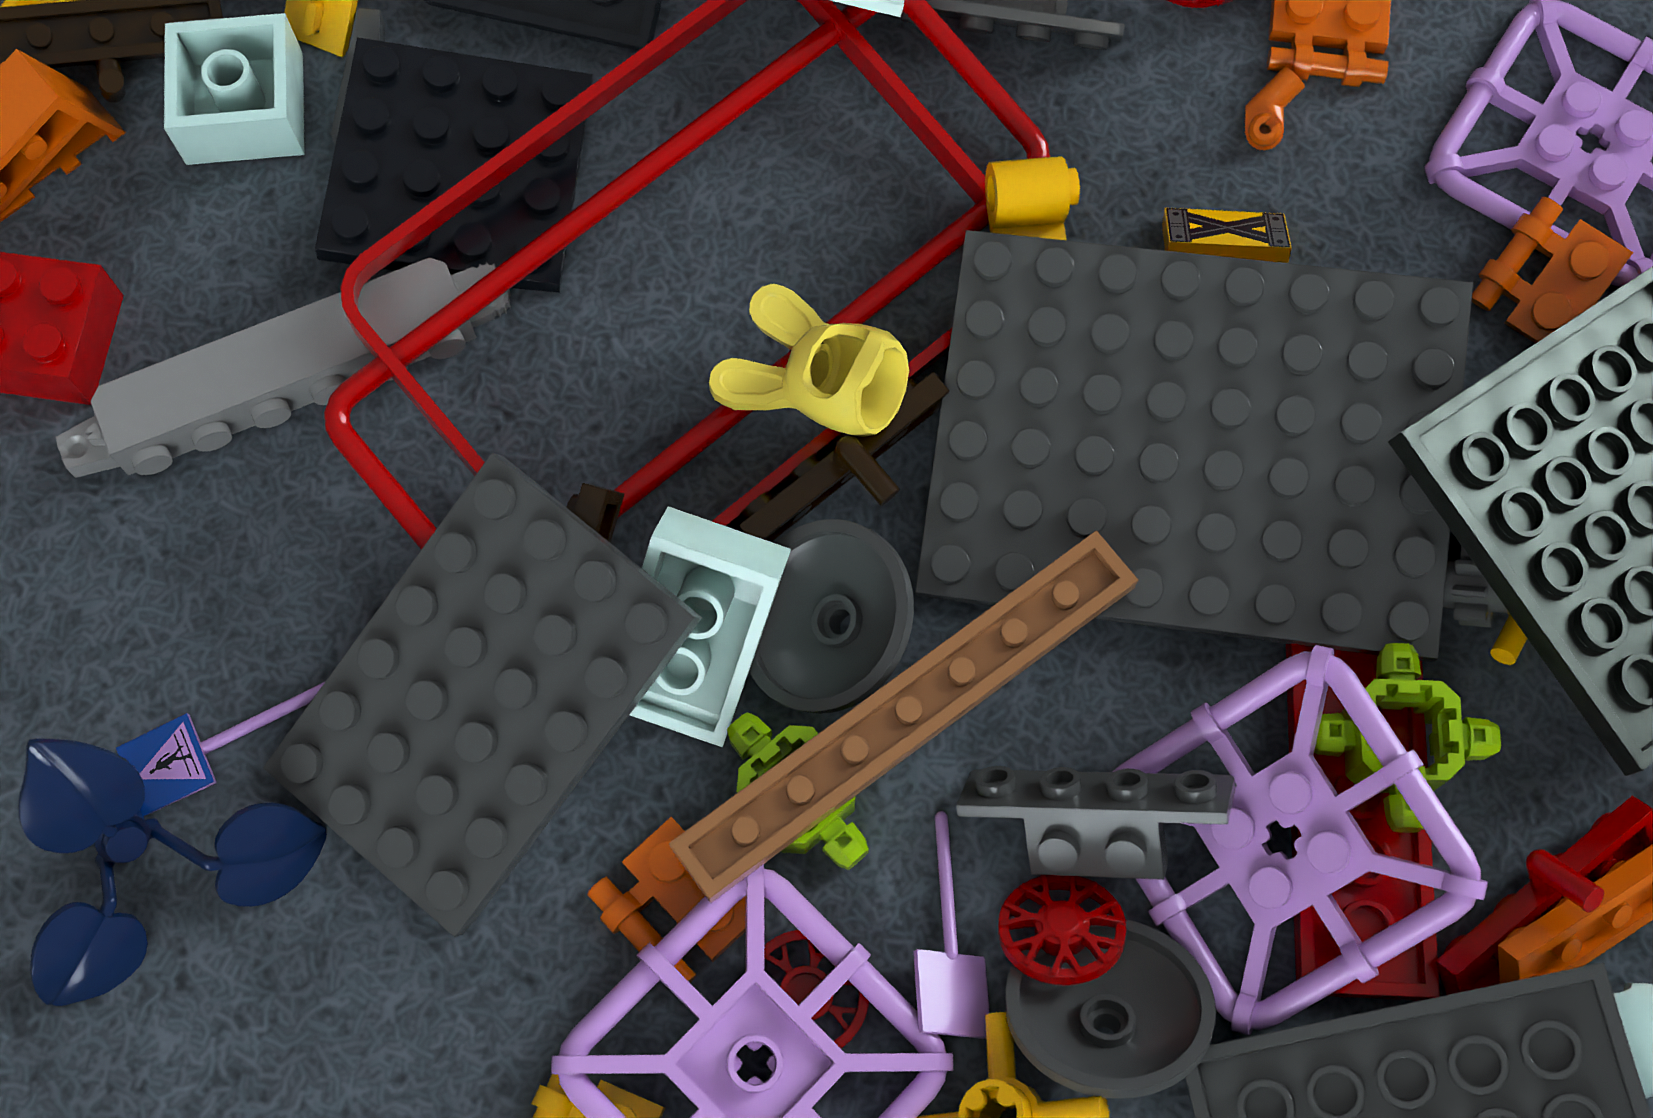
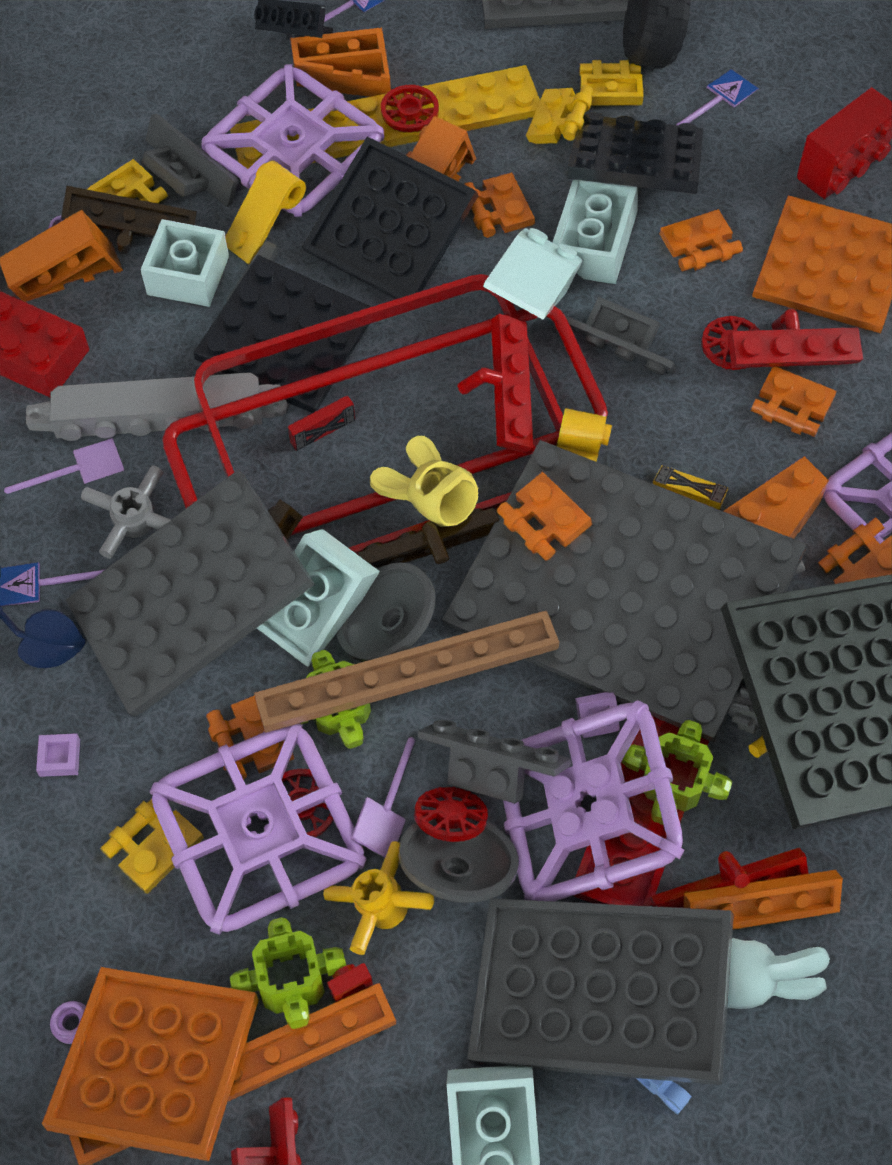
camera: 20 degrees right, 10 degrees down
(212, 497) = (92, 461): none -> lavender piece
(291, 569) = (129, 511): none -> light grey bar
(361, 1053) = (58, 755): none -> lavender plate
(581, 307) = (321, 423): none -> tile
(882, 143) = (510, 383): none -> red plate
(1039, 350) = (552, 509): none -> orange plate
(1226, 667) = (593, 704): none -> lavender plate
(1266, 109) = (739, 432): orange arm -> none
(1391, 212) = (784, 500): none -> orange wedge

